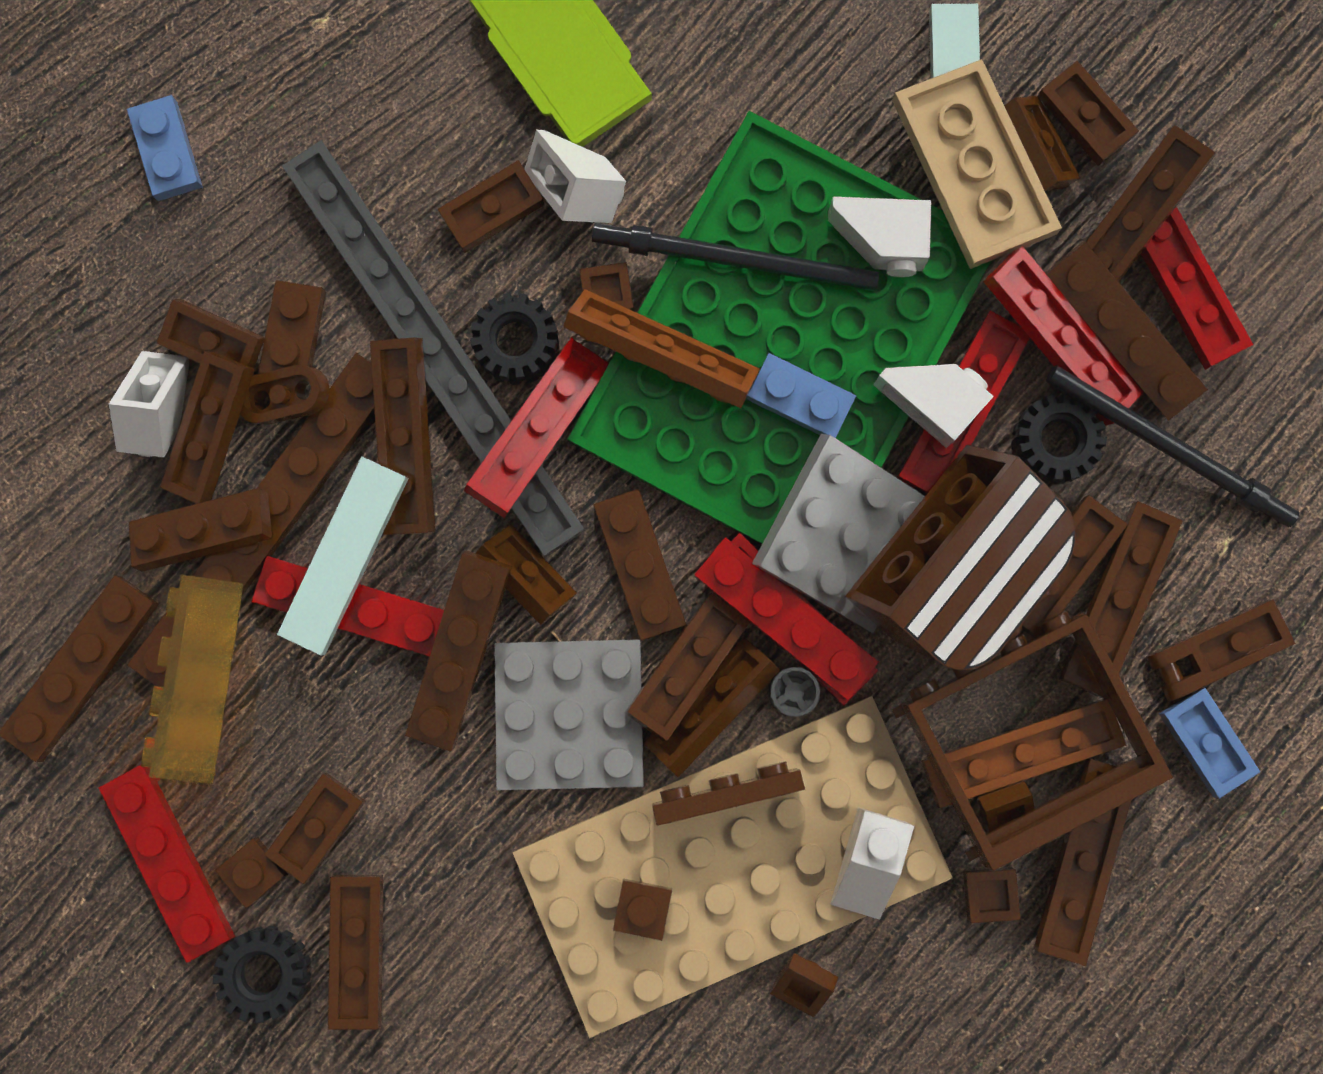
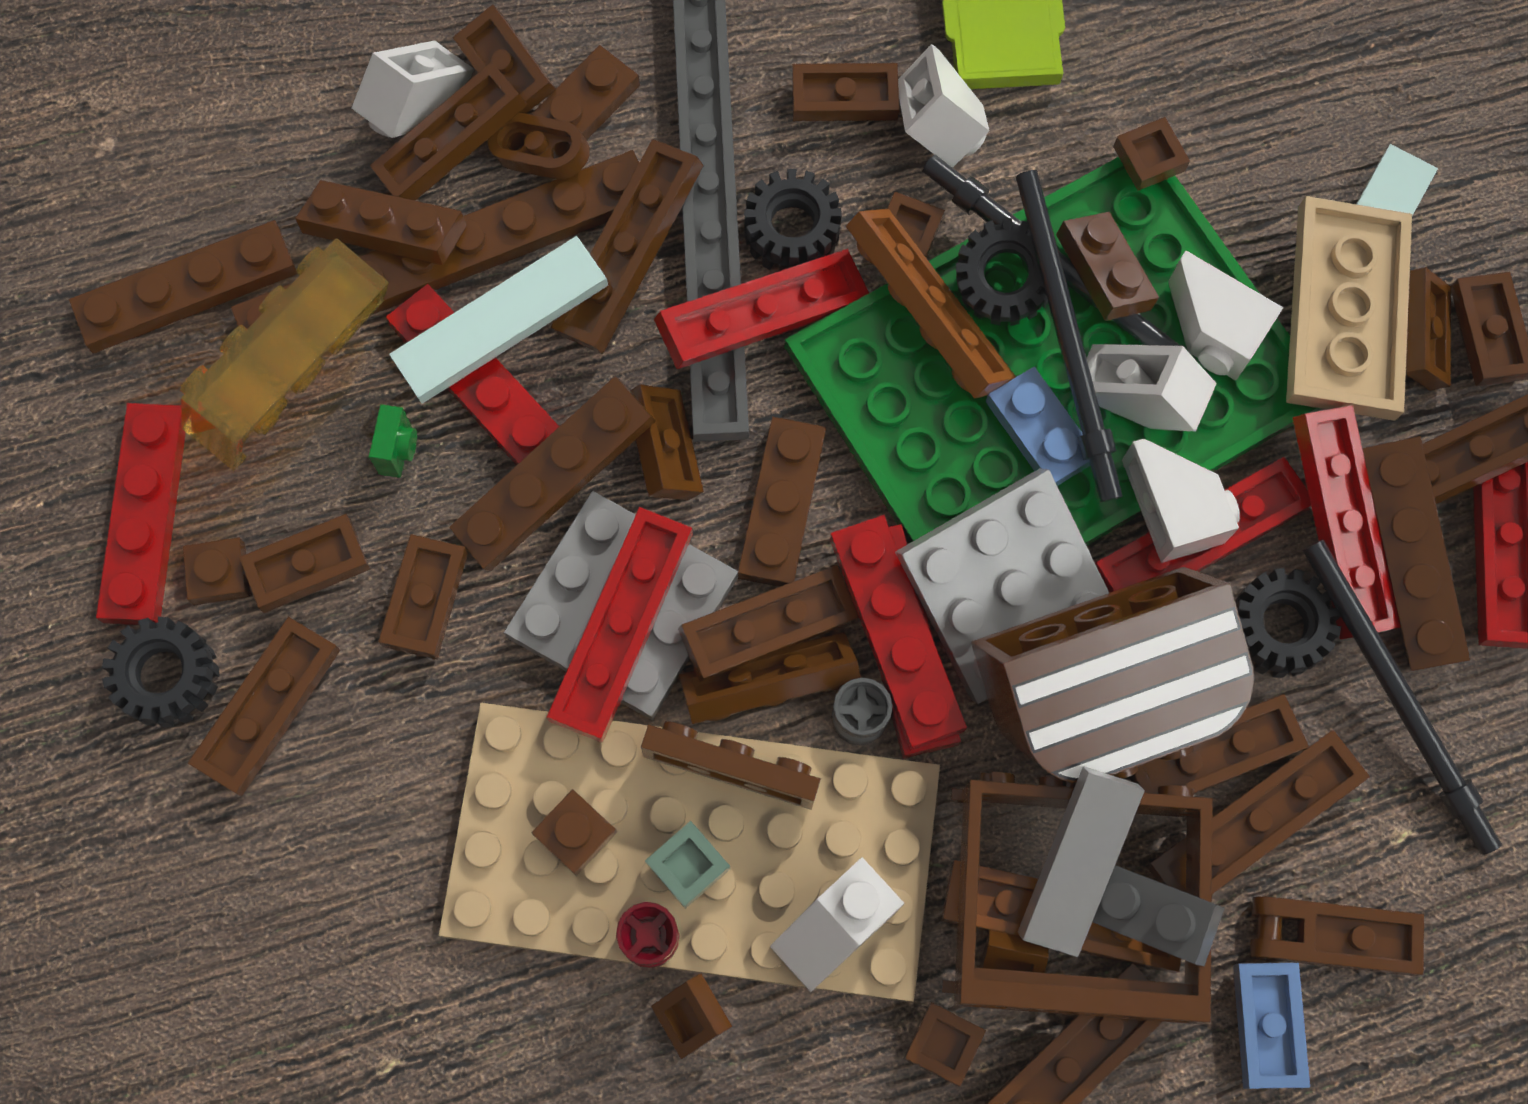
camera: 25 degrees right, 10 degrees down
(321, 696) = (392, 441): none -> green plate
(420, 799) = (423, 596): none -> reddish brown plate
(582, 738) = (620, 625): none -> red plate
(736, 291) = (979, 294): none -> black tyre
(739, 884) = (687, 864): none -> sand green plate
(748, 959) = (640, 929): none -> dark red wheel
(759, 125) = (1151, 153): none -> reddish brown plate
(777, 239) = (1107, 266): none -> reddish brown plate
(851, 389) = (1096, 442): none -> black bar
(860, 319) = (1151, 384): none -> white slope
(1018, 715) = (1080, 861): none -> light grey tile
(1091, 721) = (1159, 915): none -> dark grey plate

